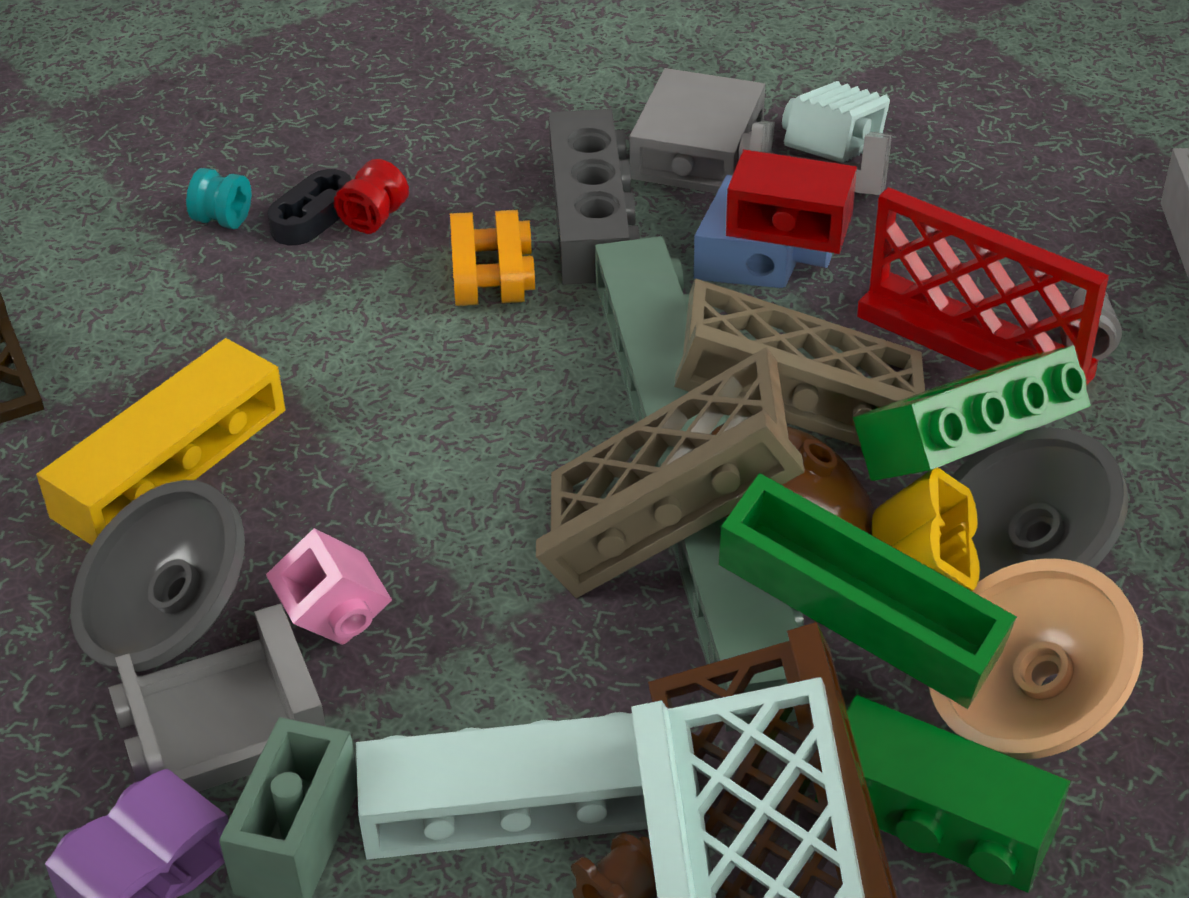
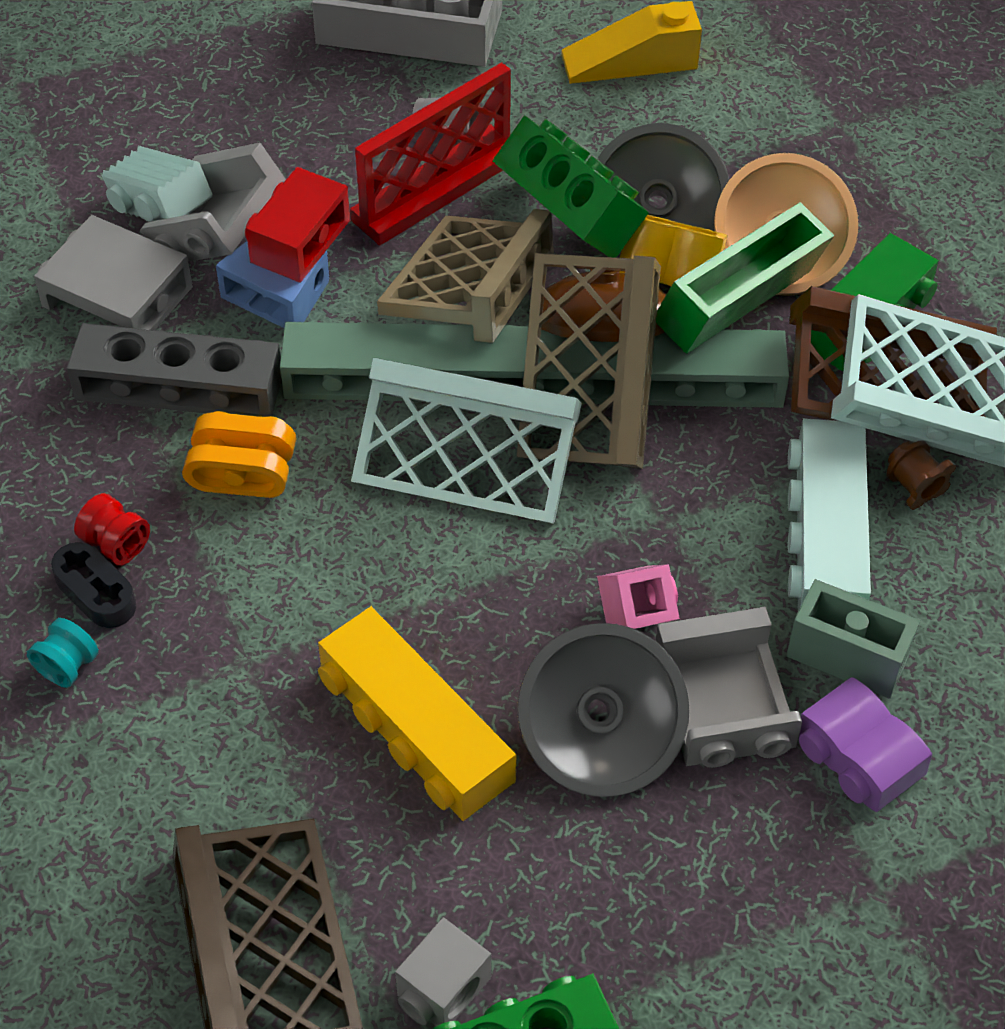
camera: 80 degrees left, 10 degrees up
(580, 396) = (472, 395): none -> light aqua fence

